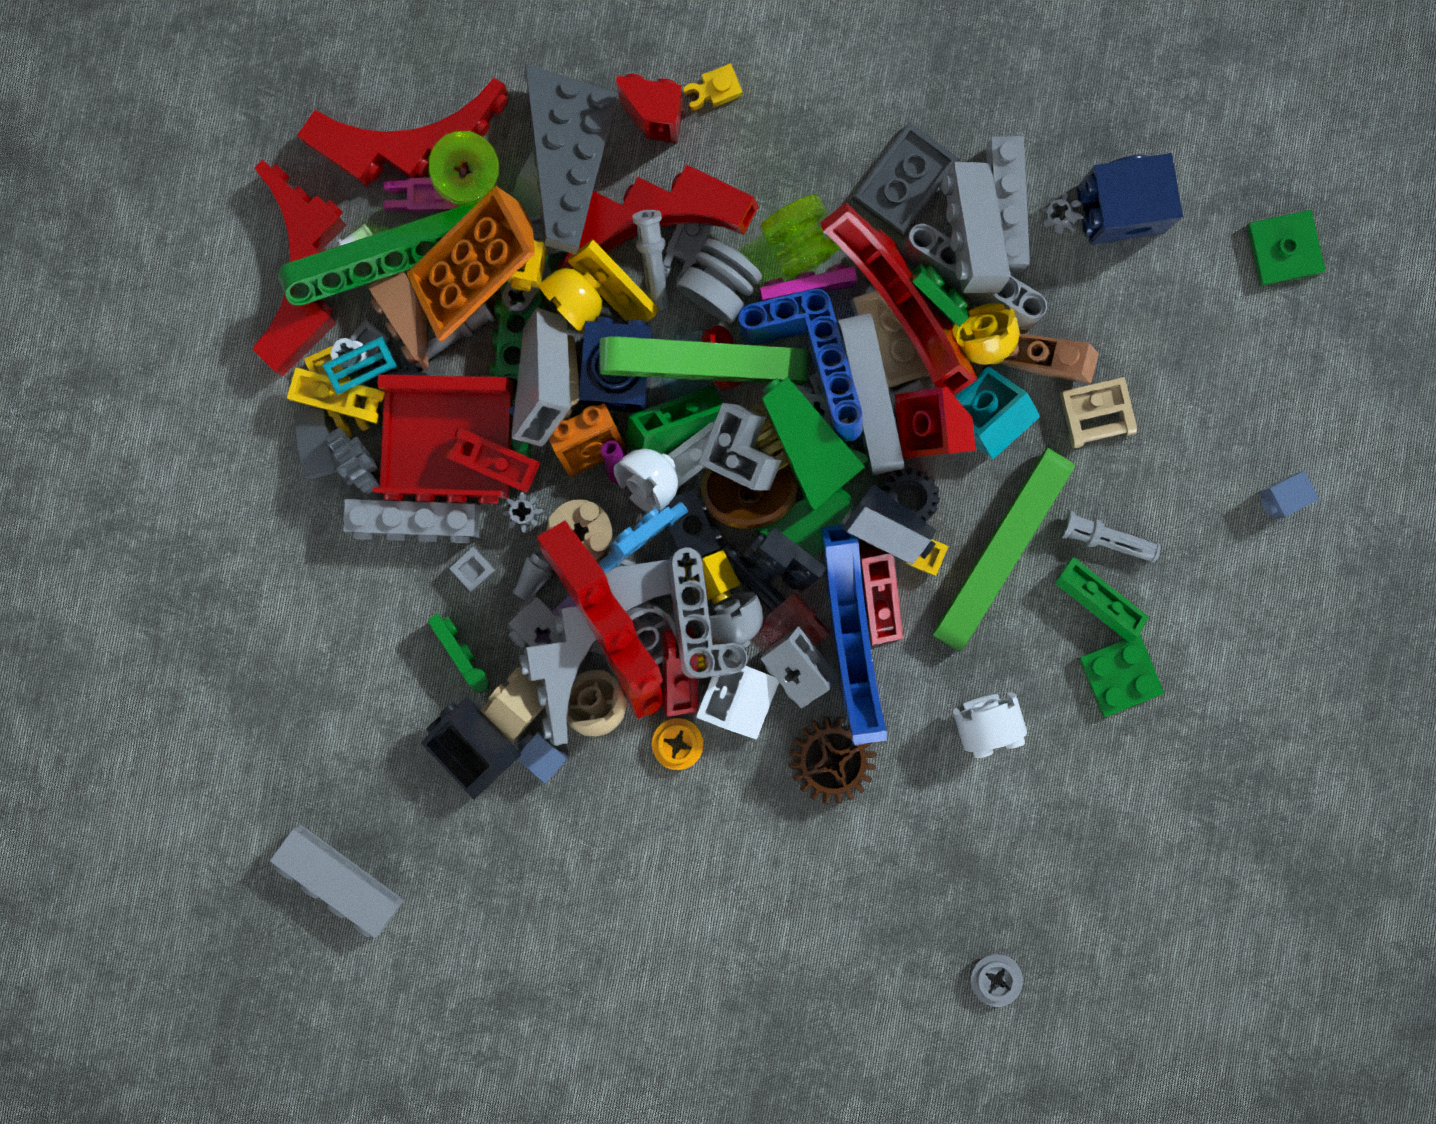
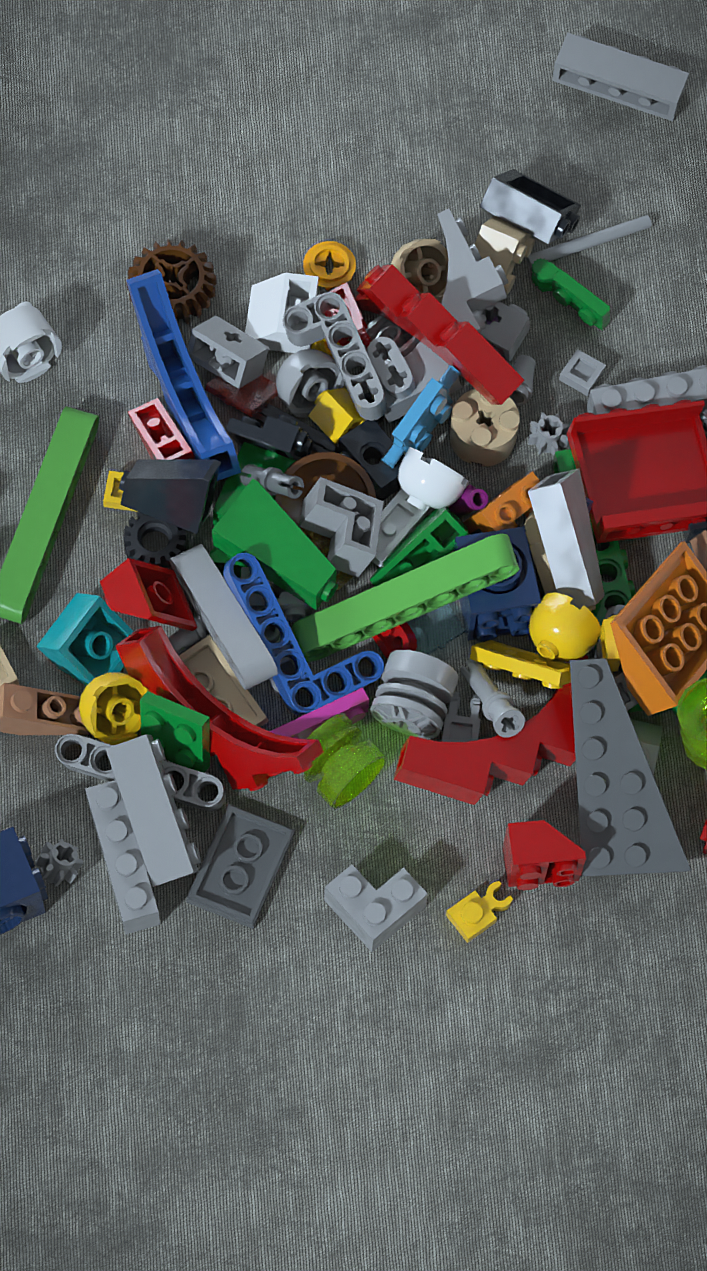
camera: 160 degrees right, 20 degrees down
(412, 711) = (591, 240): none -> light grey bar
(493, 460) = (593, 453): red plate -> none
(541, 756) = (470, 214): sand blue brick -> none
(647, 594) = (398, 364): none -> light grey beam
(796, 505) = (273, 480): none -> dark grey pin
(802, 100) = (372, 912): none -> light grey brick

